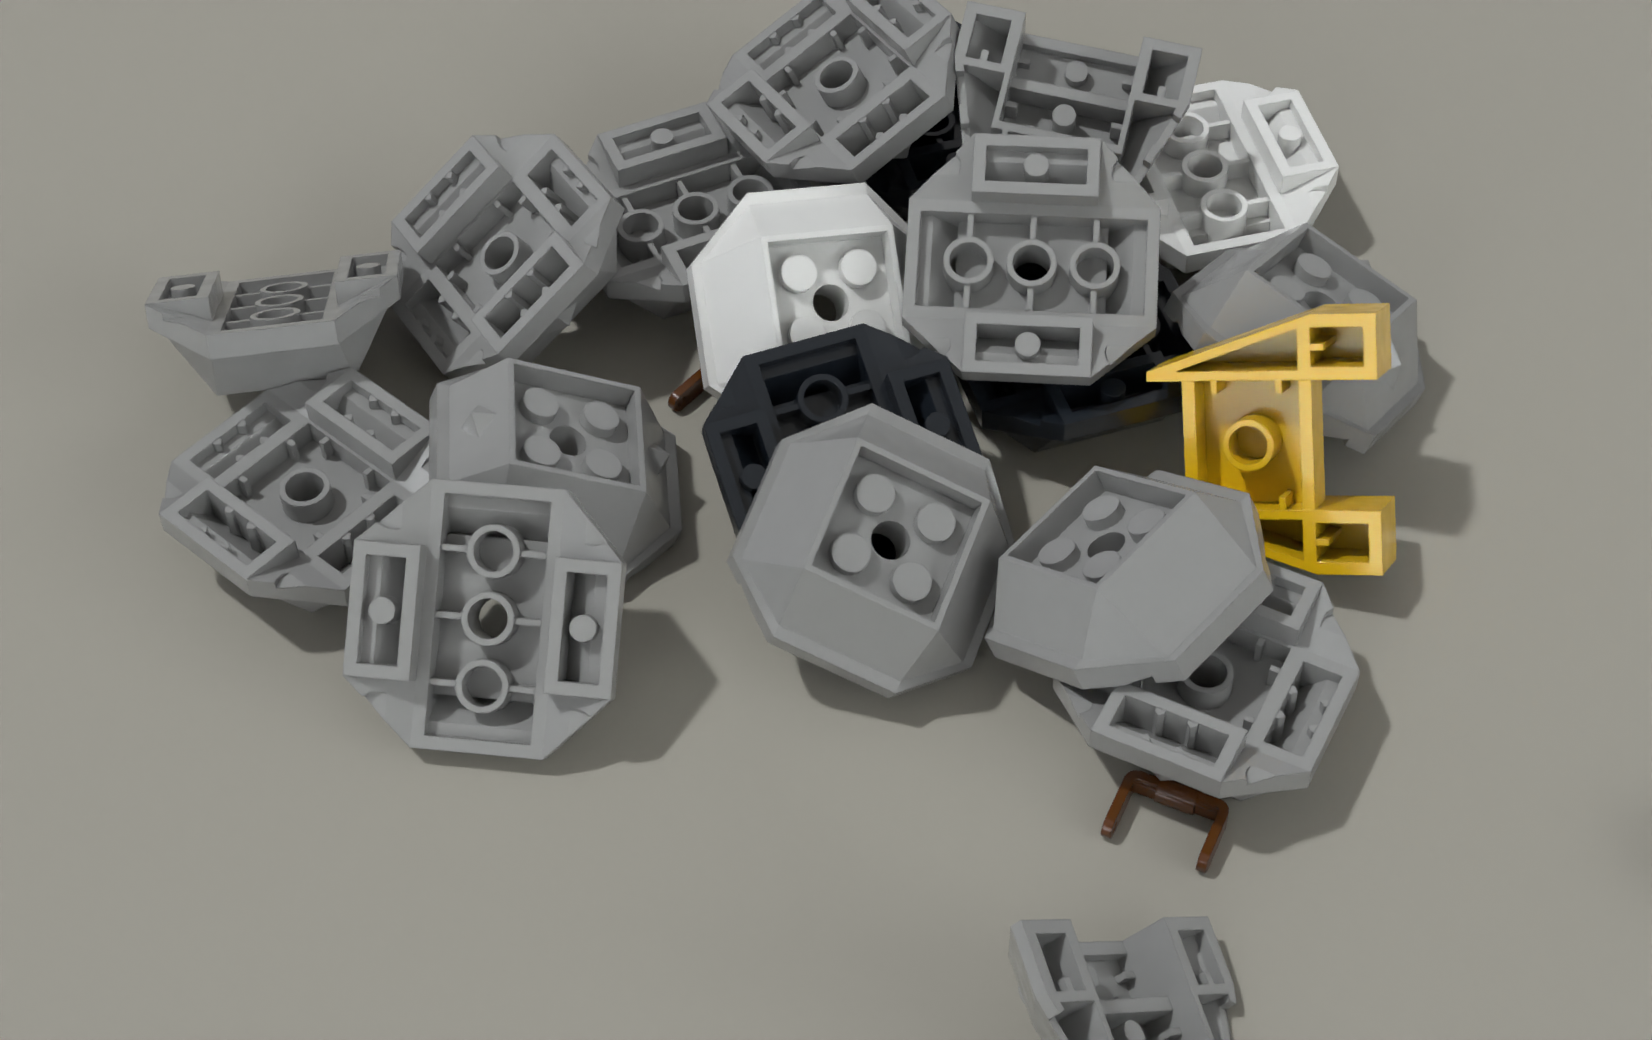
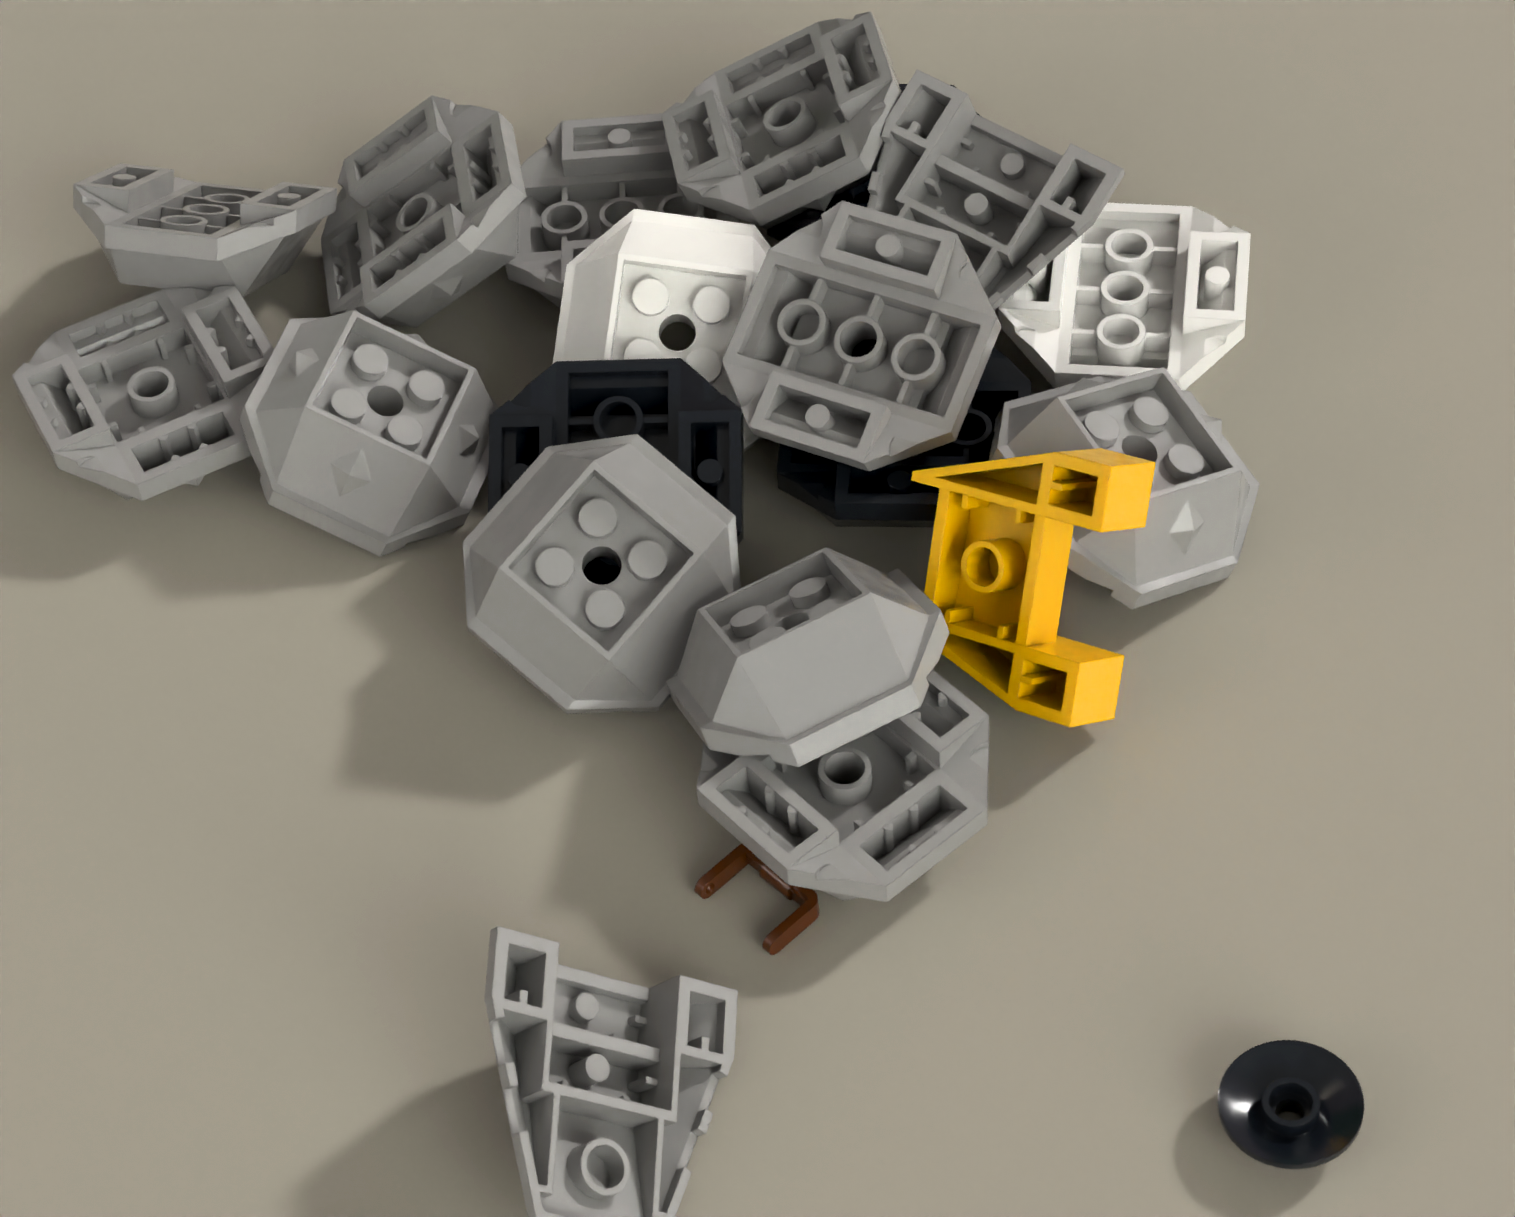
camera: 25 degrees right, 0 degrees up
(418, 631) = (181, 529): light grey piece -> none

